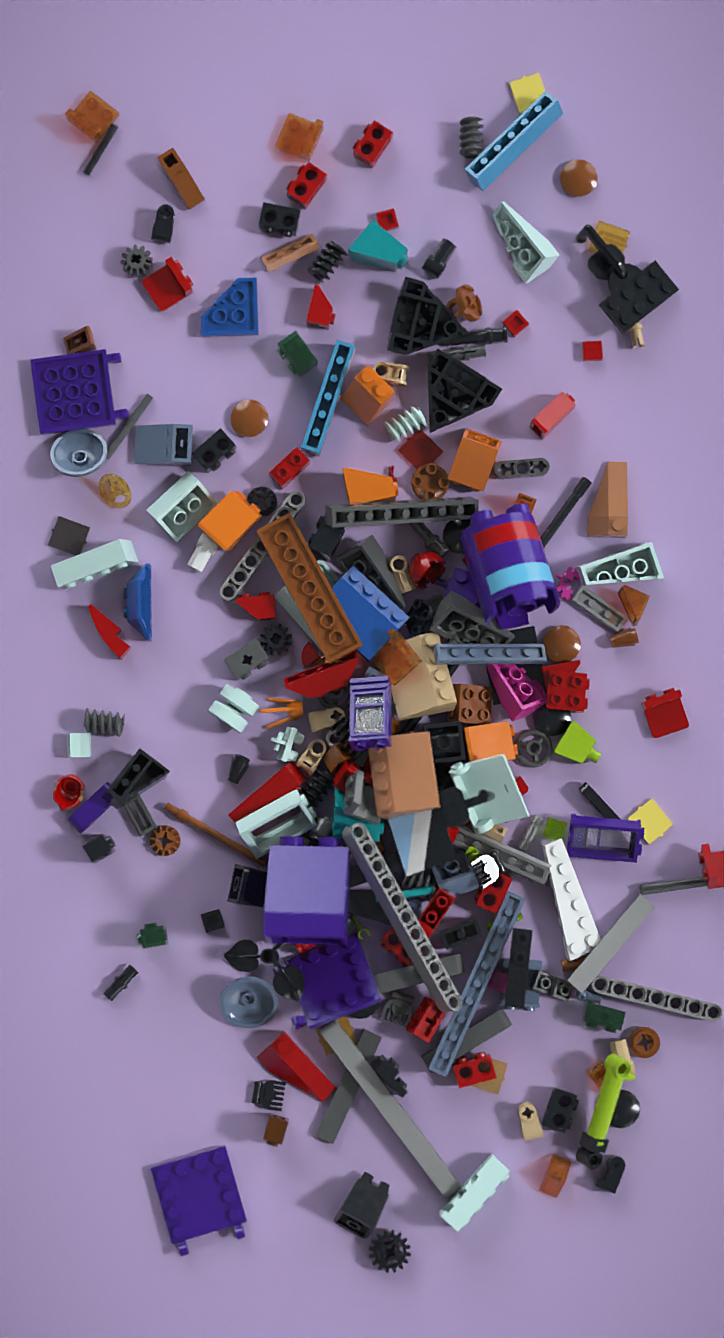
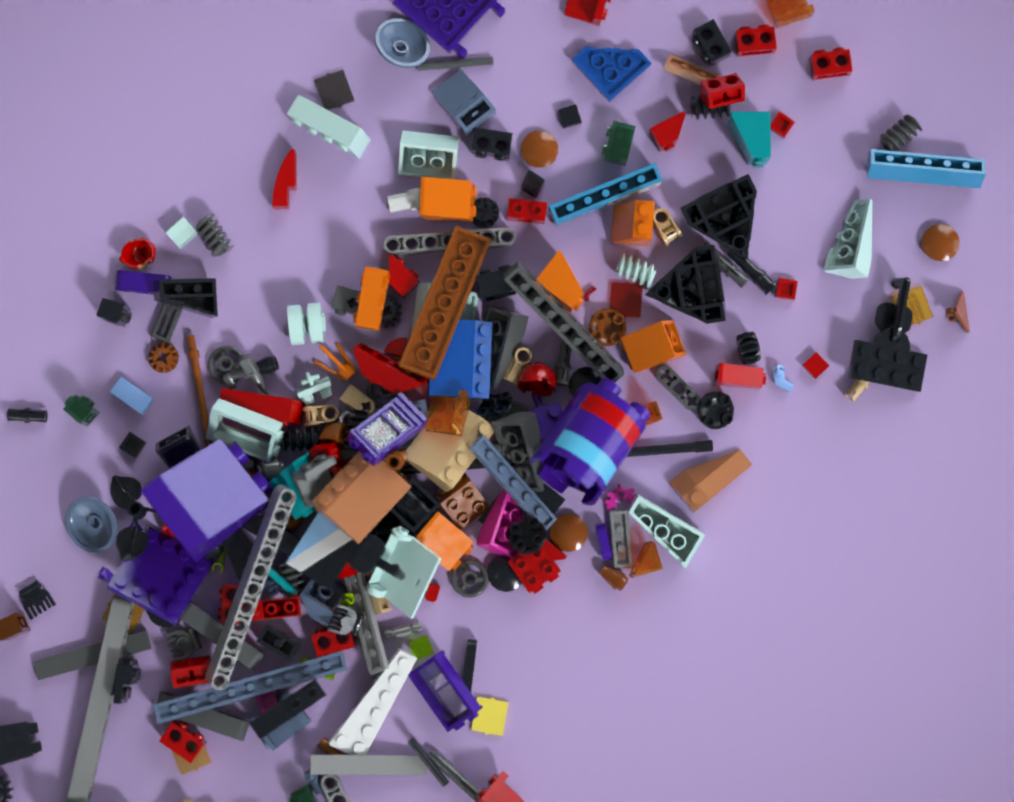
camera: 50 degrees right, 0 degrees up
(117, 488) = (400, 94): clear yellow piece -> none
(140, 602) = (328, 185): blue wedge -> none
(174, 889) = (132, 395): none -> light blue slope
(198, 791) = (222, 351): none -> dark grey piece
(233, 781) = (248, 370): none -> dark grey piece
(243, 374) = (569, 116): none -> black tile
(258, 641) = (371, 298): none -> orange wedge
(273, 445) = (532, 184): none -> black slope
(292, 1064) = (73, 599): red wedge -> none
(326, 241) = (722, 90): none -> red brick
(399, 725) = (396, 459): none -> dark orange cone
(437, 261) = (780, 189): black piece -> none
(468, 304) = (769, 239): dark orange tile -> none
(526, 91) = (973, 146): light yellow piece -> none
(537, 389) = (748, 347): none -> black gear
(539, 676) = (527, 536): none -> black dish
(551, 985) = (298, 745): dark grey slope -> none
(562, 454) = (715, 410): none -> black dish
(577, 745) = (500, 610): lime torso -> none
(579, 386) = (779, 378): none -> light blue arm
(591, 623) = (603, 541): none -> dark purple beam
(643, 209) = (959, 312): none -> piece
(646, 896) = (428, 762): none -> black bar
(665, 713) = (582, 657): red bracket -> none

